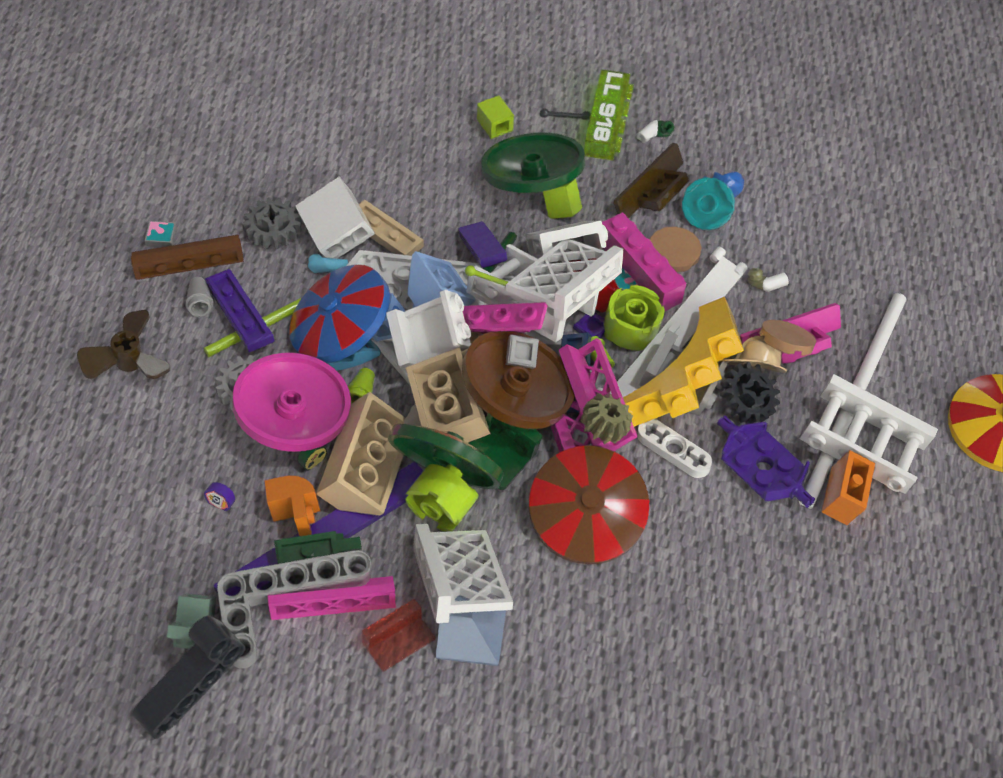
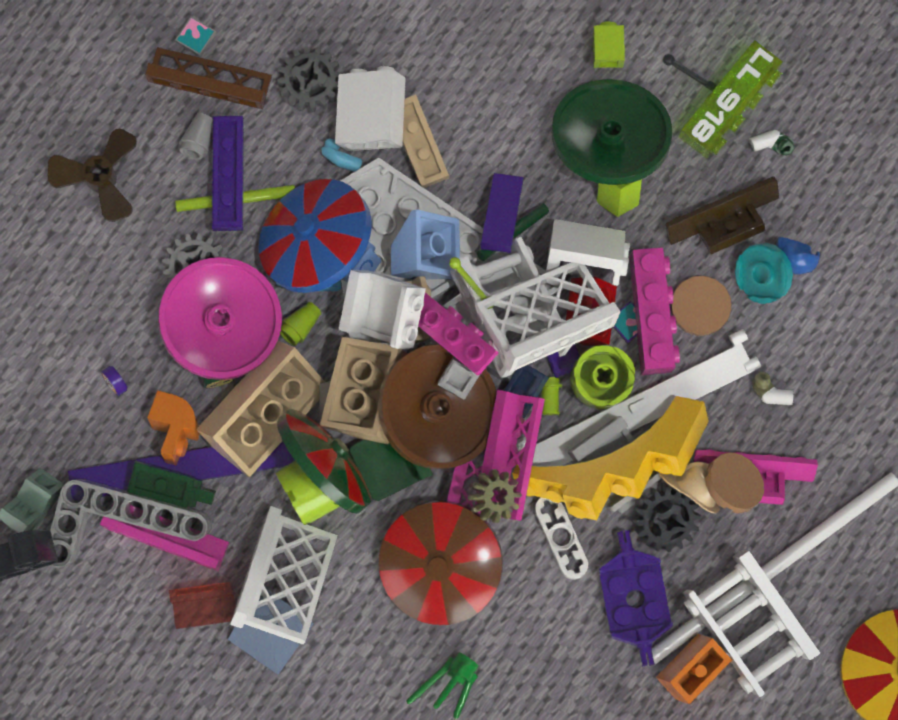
camera: 30 degrees right, 25 degrees up
(658, 585) = (461, 670): none -> green plant

